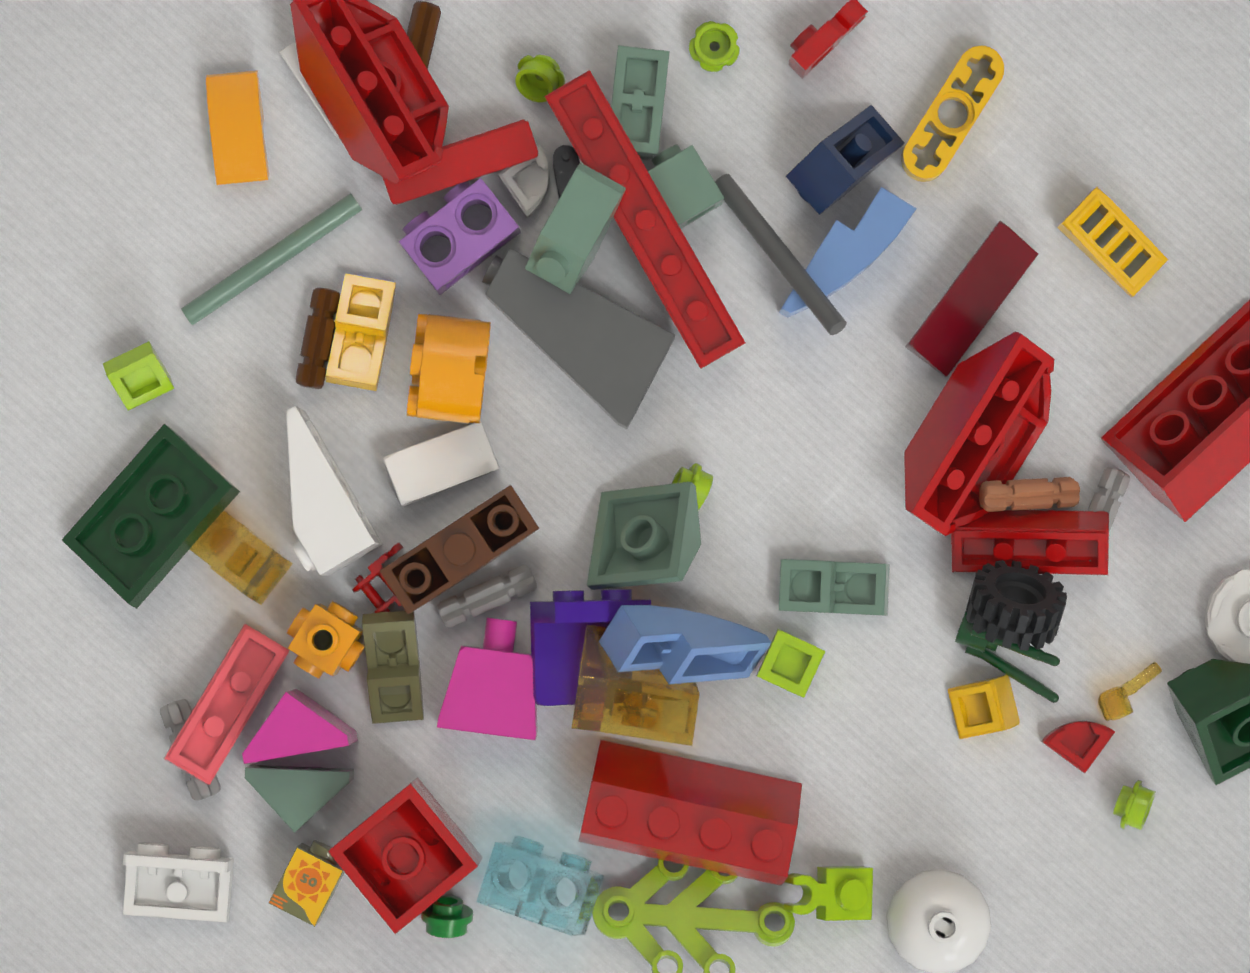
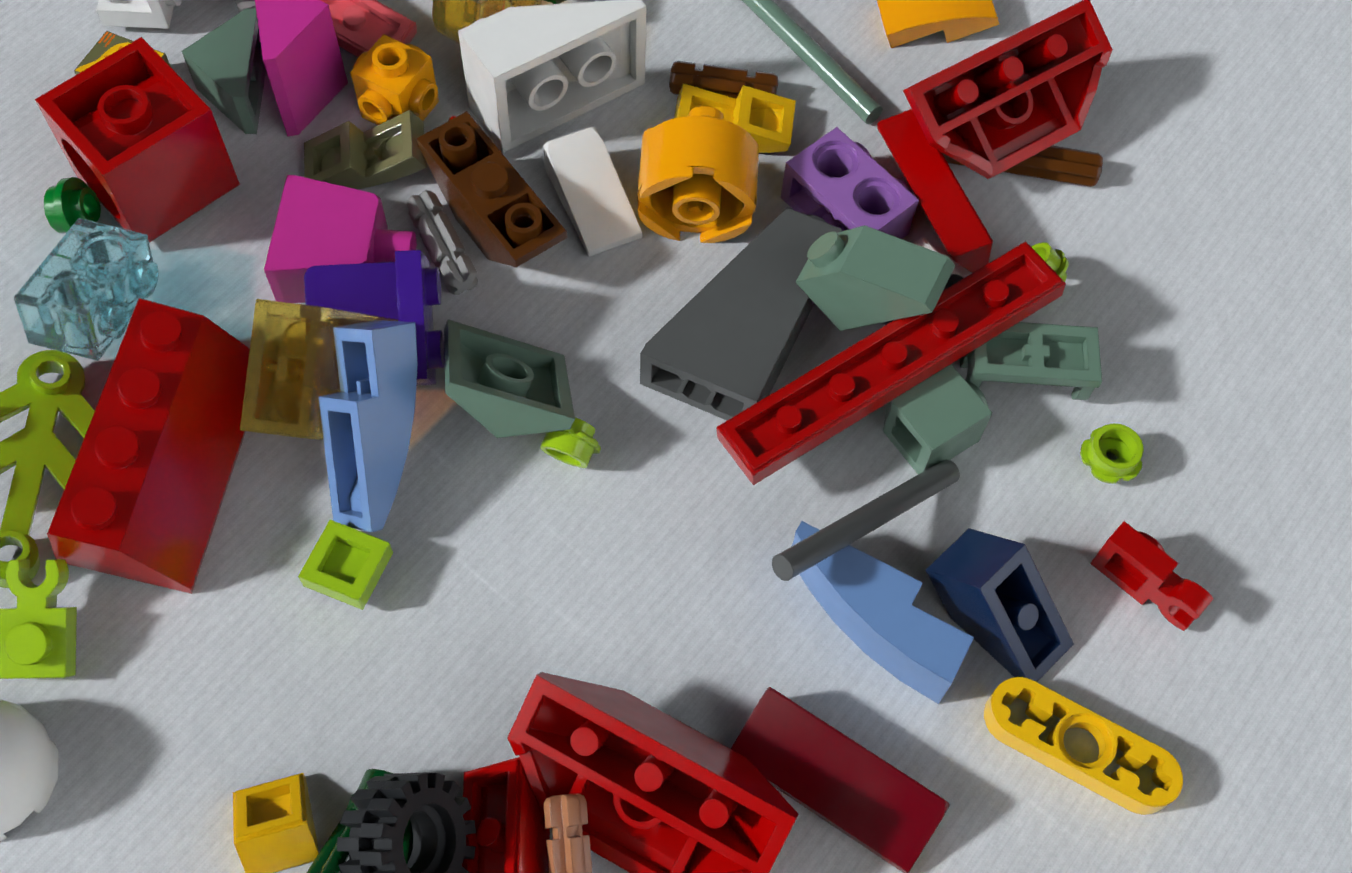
camera: 85 degrees right, 25 degrees down
(834, 587) = (444, 619): sand green slope -> none

